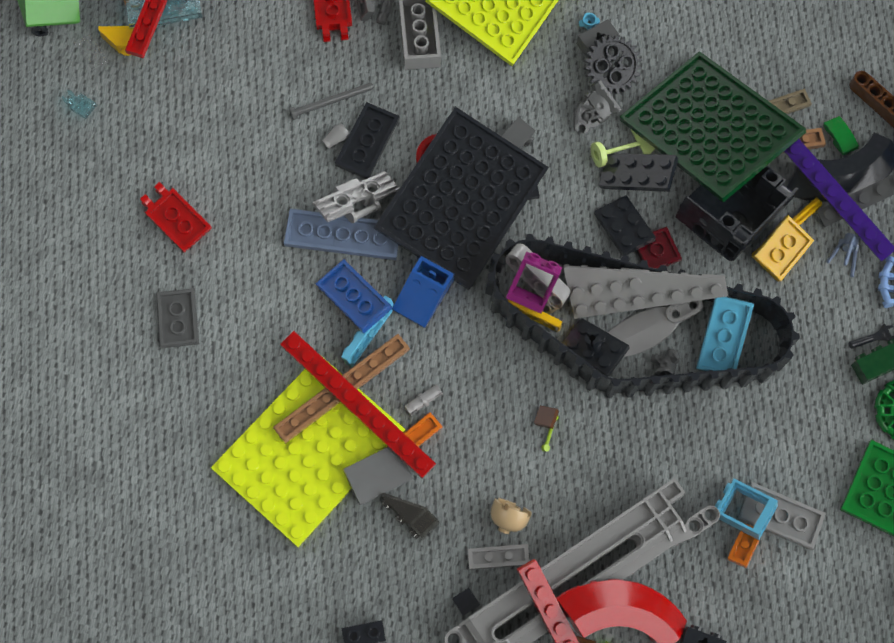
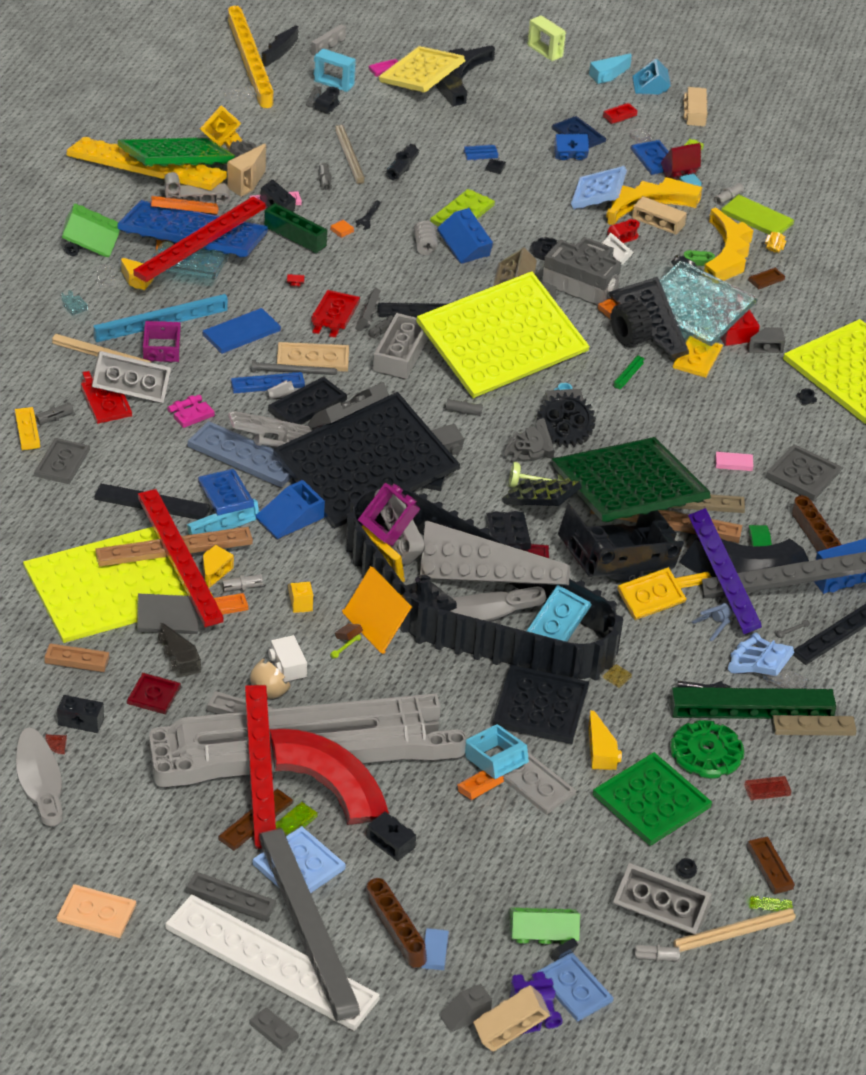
camera: 25 degrees right, 30 degrees down
(123, 292) = (27, 428): none -> yellow plate
(139, 261) = (54, 413): none -> dark grey pin
(140, 157) = (87, 347): none -> tan axle
(182, 82) = (171, 314): none -> dark azure tile
(187, 105) = (154, 331): none -> magenta window
(190, 187) = (131, 377): none -> light grey slope
(257, 70) = (241, 330): none -> blue tile
(269, 200) = (193, 414): none -> dark pink plate
(275, 335) = (174, 505): none -> black tile
(315, 129) = (265, 382): none -> blue tile
(322, 564) = (77, 657): none -> medium nougat plate
(341, 75) = (314, 355): none -> tan tile
(388, 390) = (216, 564): none -> yellow slope
(411, 572) = (153, 693): none -> dark red tile
(431, 121) = (358, 402): none -> dark grey wedge
(482, 390) = (301, 596): none -> yellow slope
(511, 83) = (464, 407): none -> dark grey pin
(512, 479) = (288, 658): none -> white brick
(566, 388) = (377, 609): none -> light orange piece
(750, 425) = (541, 704): none -> black plate
(775, 45) = (734, 461): none -> bright pink tile
(799, 359) = (617, 676): none -> clear yellow tile
(825, 452) = (603, 745): none -> yellow slope
(841, 34) = (803, 472): none -> dark grey plate

